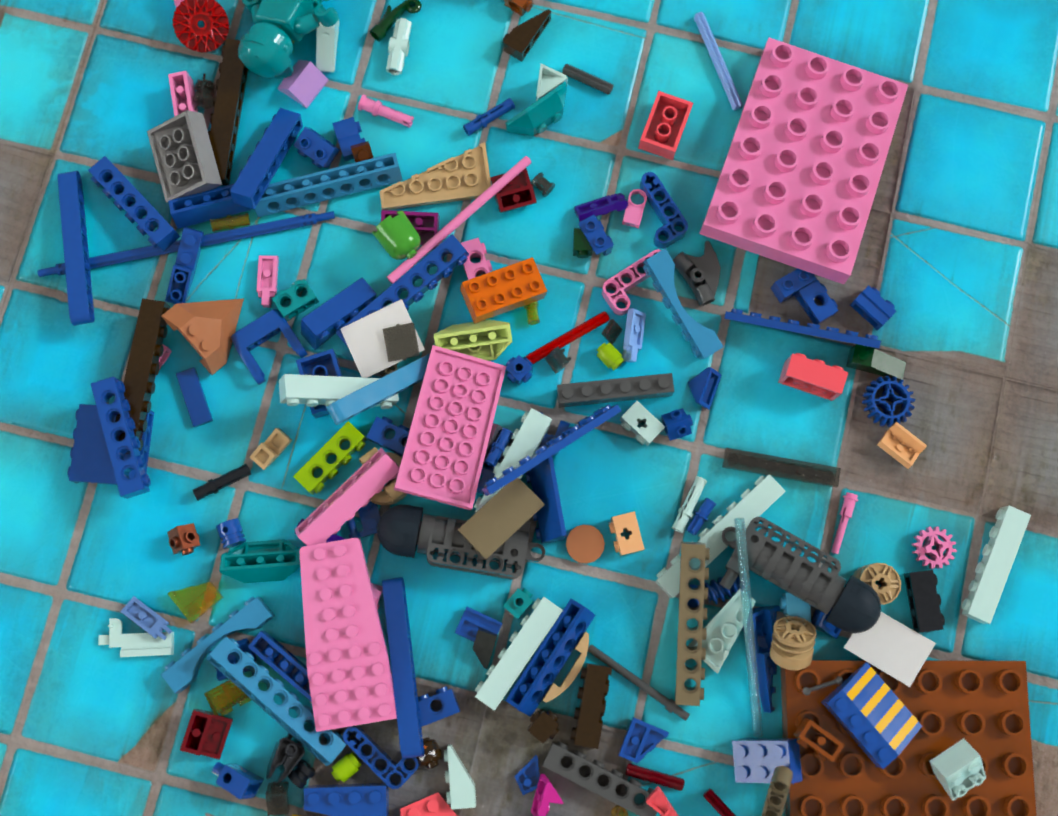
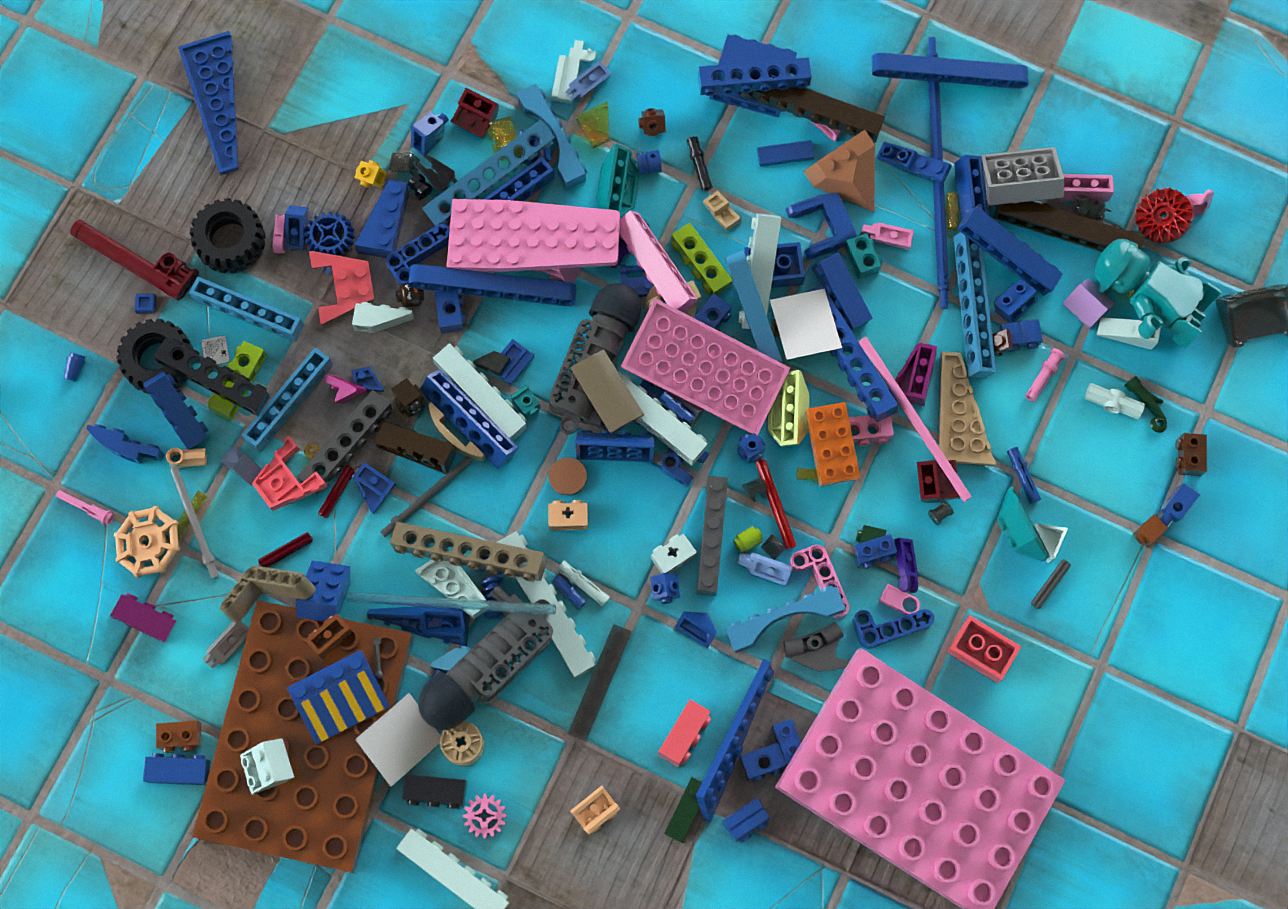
camera: 100 degrees right, 5 degrees down
(102, 173) = (949, 150): blue brick -> none
(346, 767) = (415, 223): lime brick -> none
(398, 236) = (903, 352): bright green cylinder -> none
(401, 342) = (798, 339): clear smoke piece -> none
(525, 35) = (1106, 527): dark brown slope -> none
(553, 446) = (665, 455): blue wing -> none
(718, 61) = (1051, 726): light blue axle -> none
(792, 643) = (425, 642): tan wheel -> none
(846, 513) = (539, 737): bright pink pin -> none
(888, 386) = (647, 792): blue gear -> none

